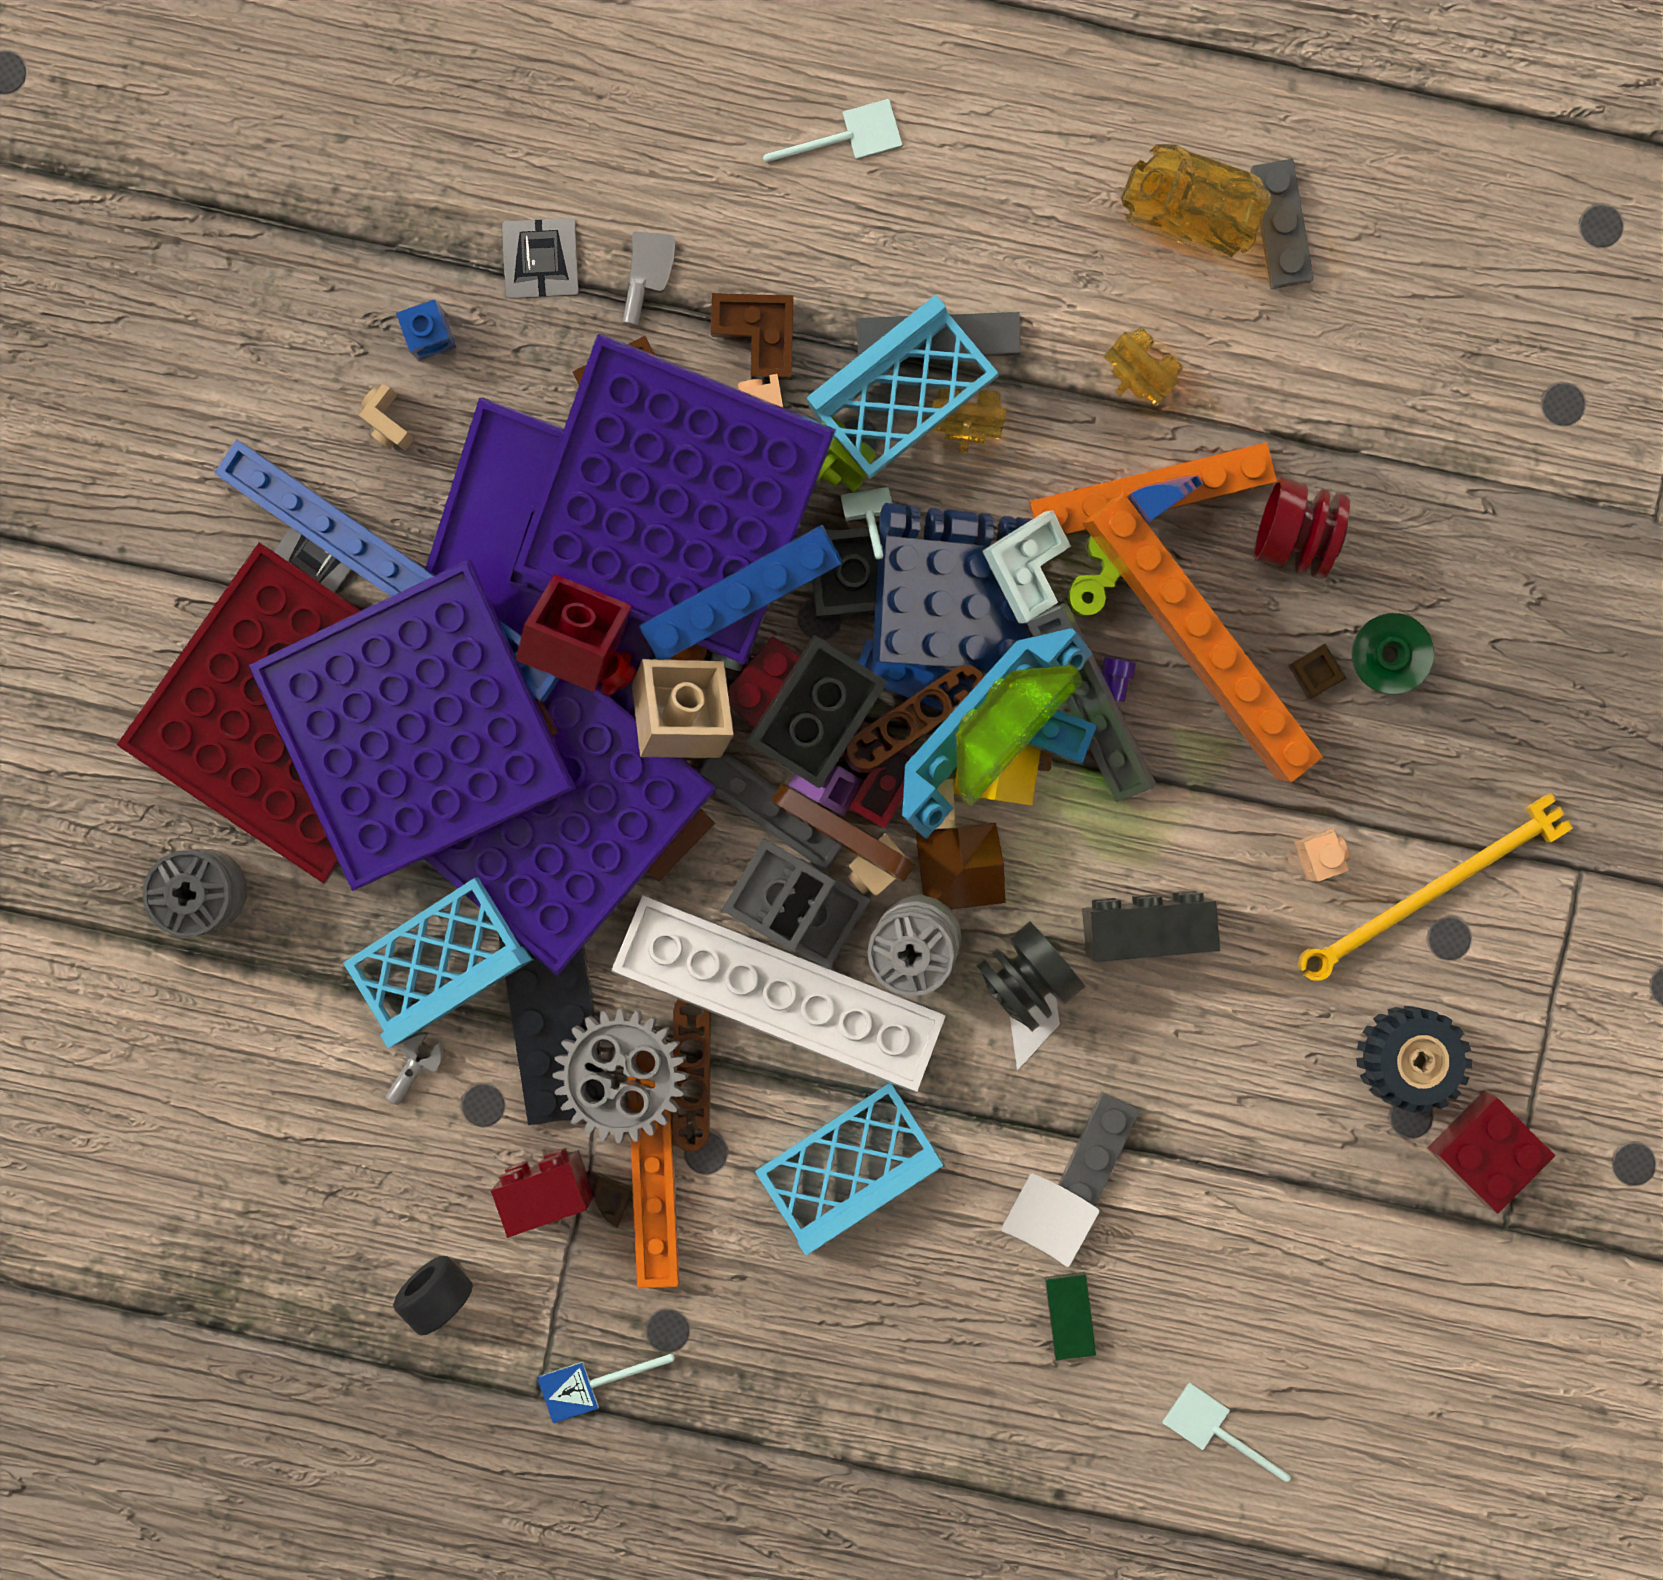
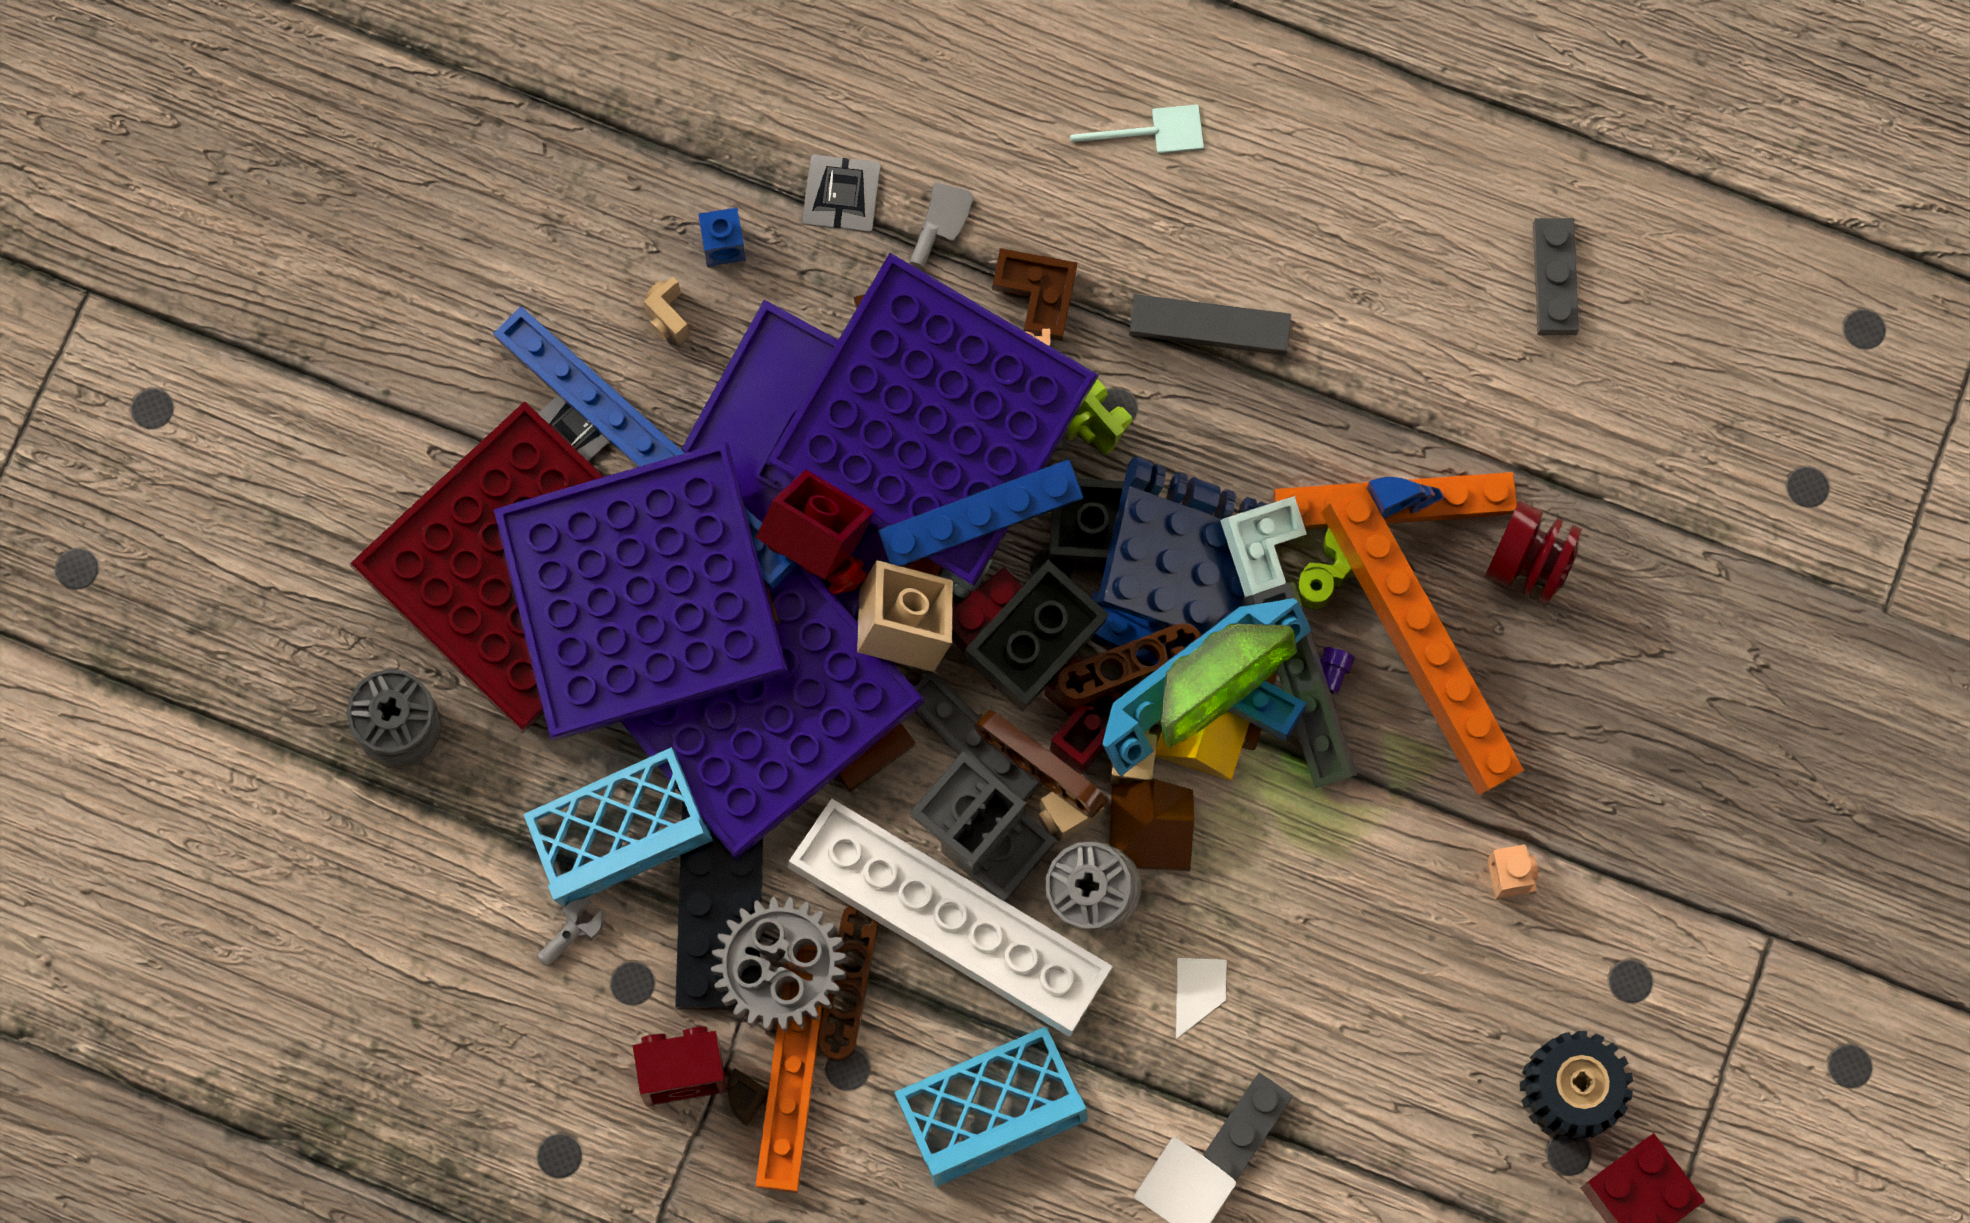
camera: 10 degrees right, 15 degrees down
(433, 1295) = (548, 1156): black tyre -> none
(836, 791) = (1038, 721): medium lavender brick -> none
(867, 505) = (1112, 465): light aqua piece -> none
(878, 361) = (1157, 328): medium azure fence -> none
(972, 421) = (1224, 402): clear yellow hips -> none
(1030, 976) = (1208, 933): pearl dark grey wheel -> none
(1141, 371) = (1398, 384): clear yellow hips -> none
(1150, 927) = (1329, 908): pearl dark grey brick -> none
(1195, 201) = (1474, 238): clear yellow brick -> none
(1316, 671) = (1532, 697): dark brown tile -> none
(1412, 649) = (1617, 673): dark green dish -> none
(1538, 824) = (1734, 880): yellow hinge -> none

